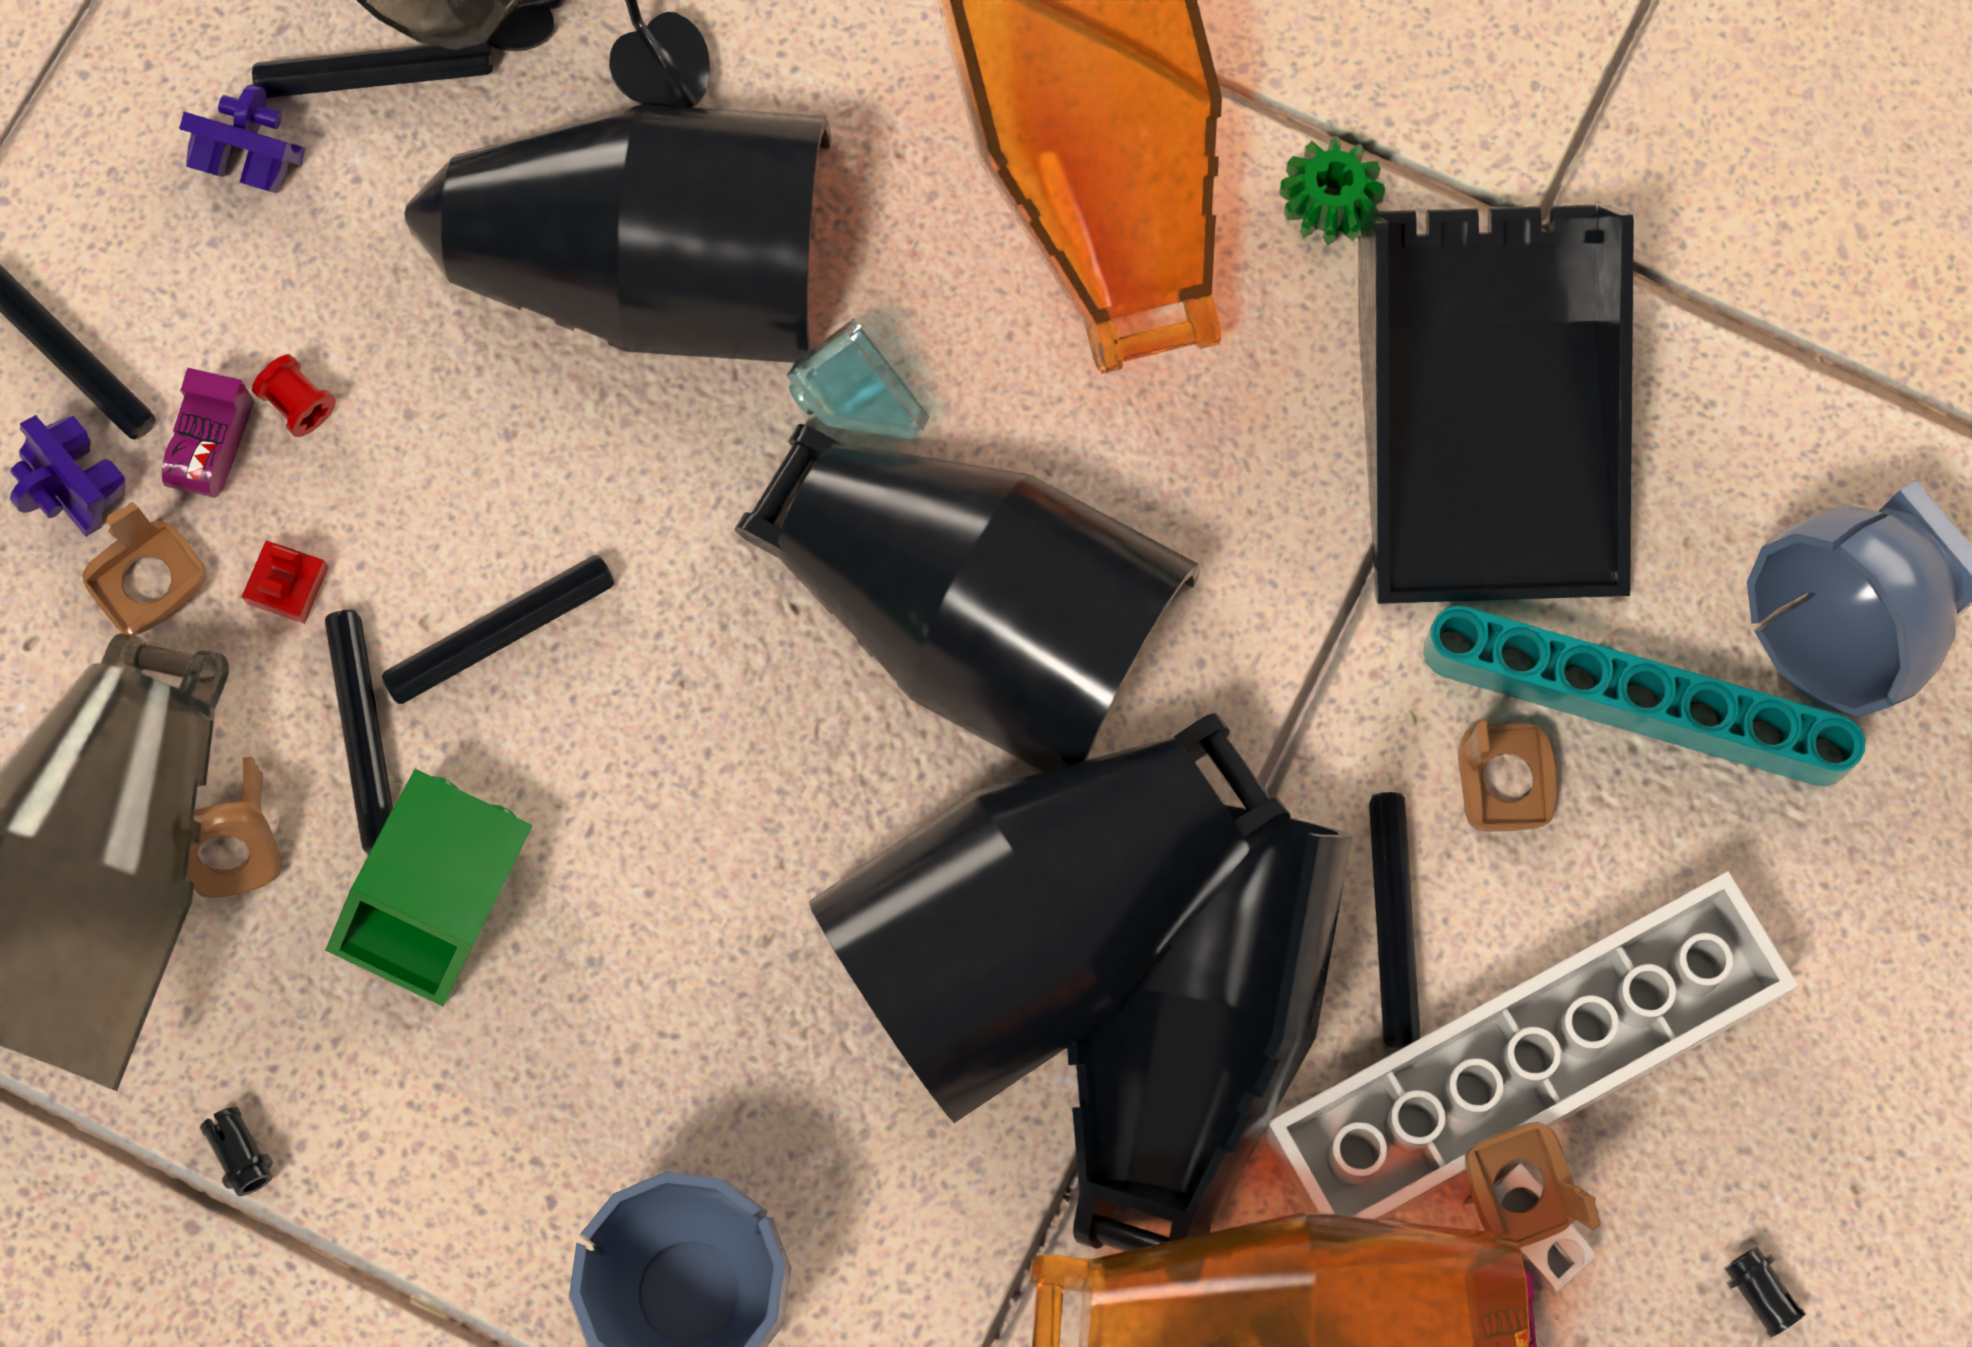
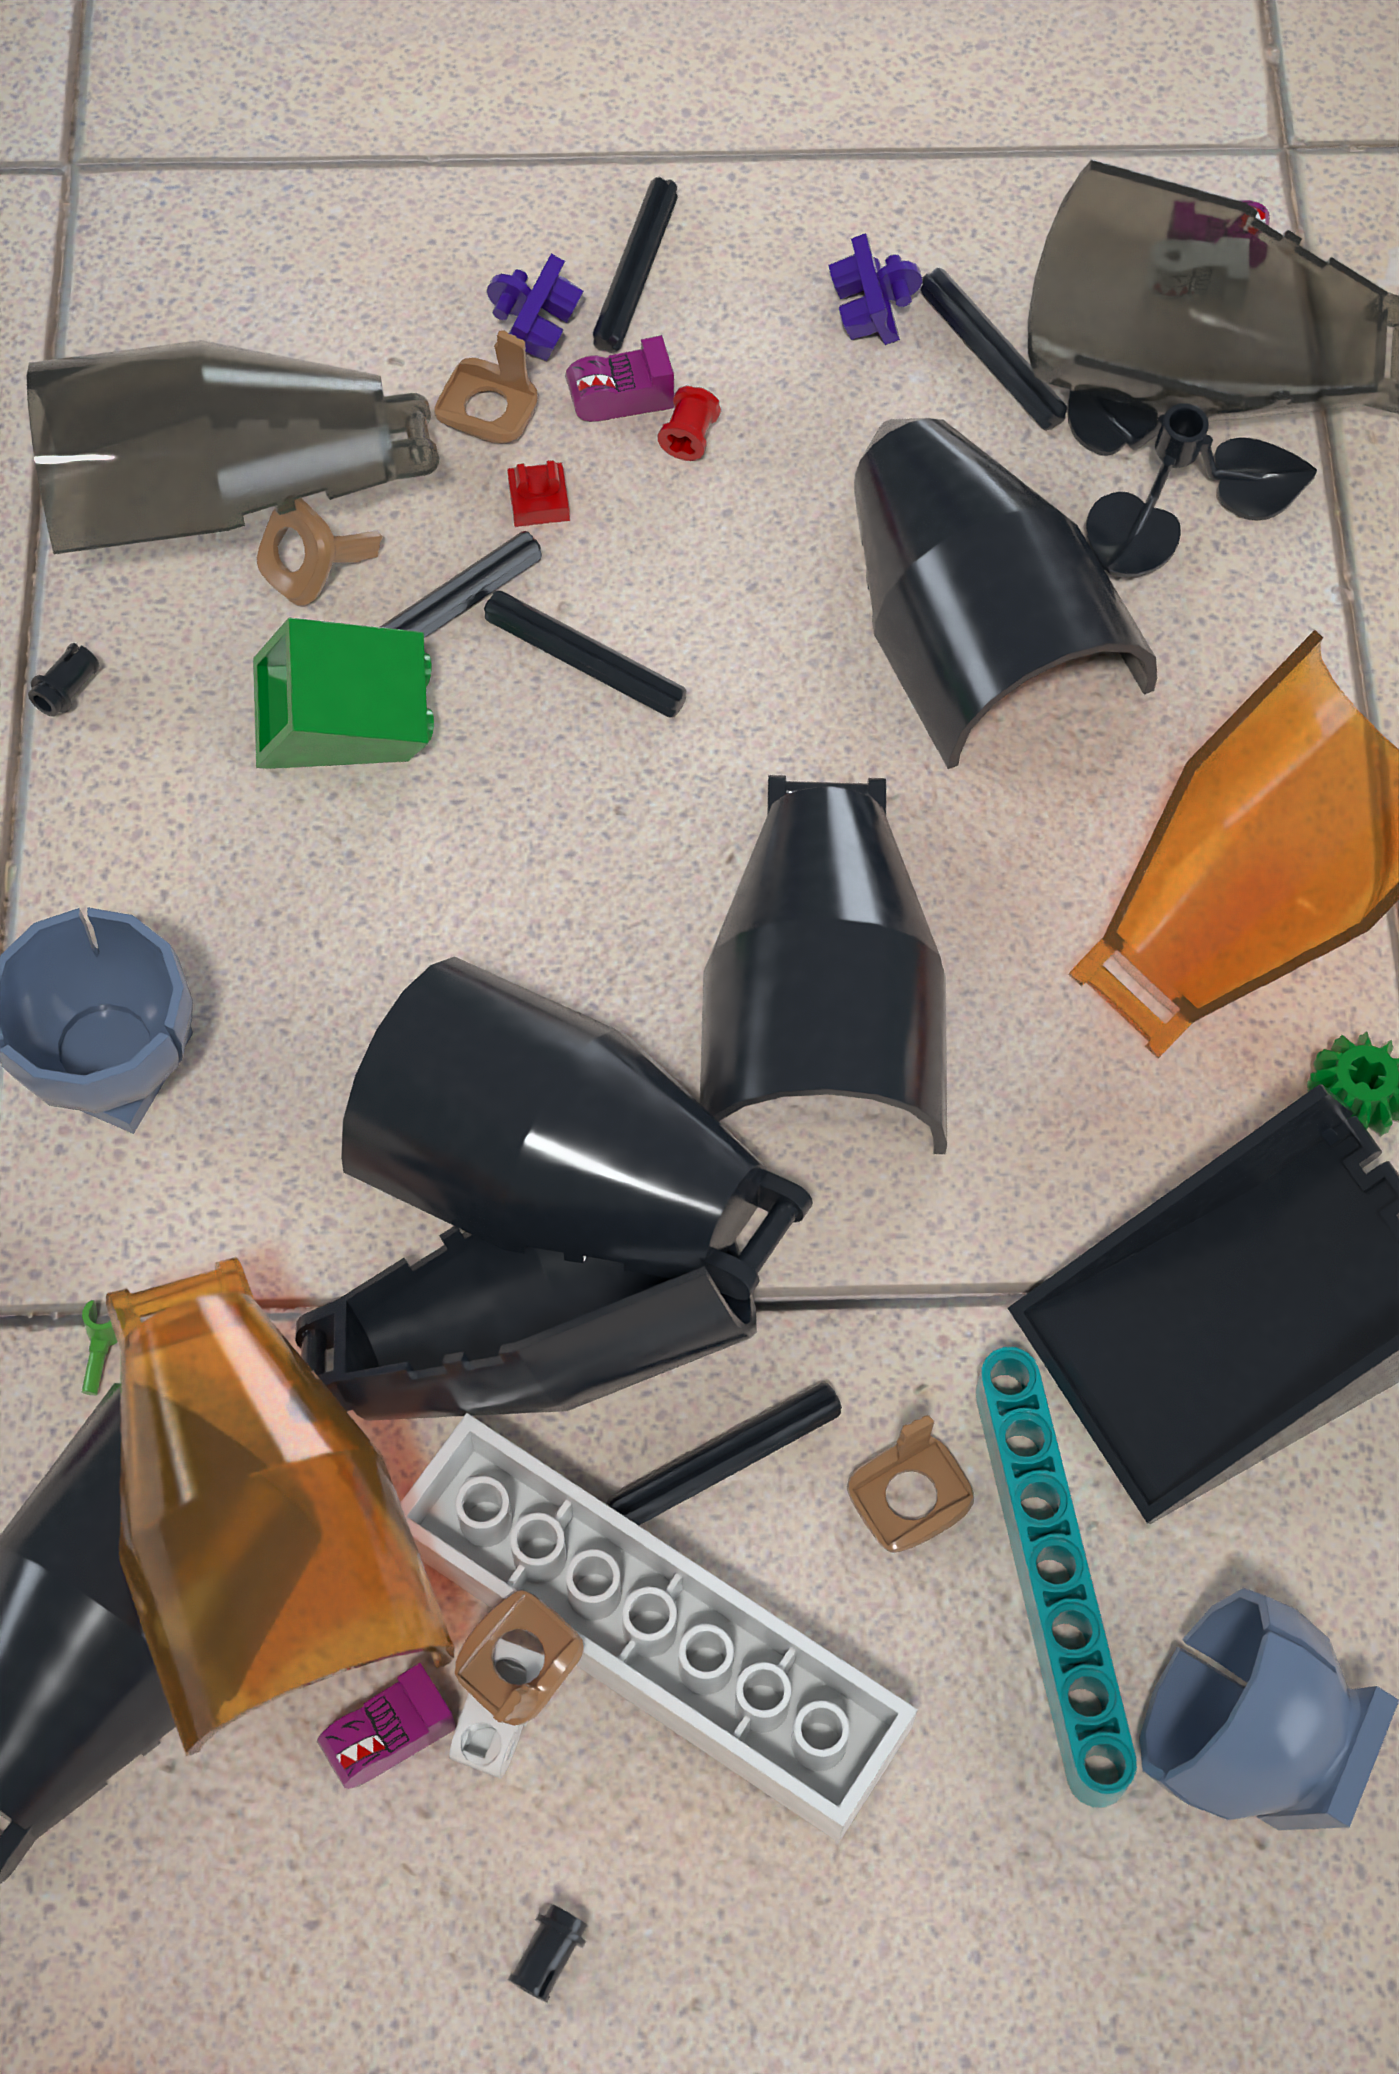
camera: 60 degrees right, 10 degrees down
(855, 387) = (941, 798): clear light blue slope -> none

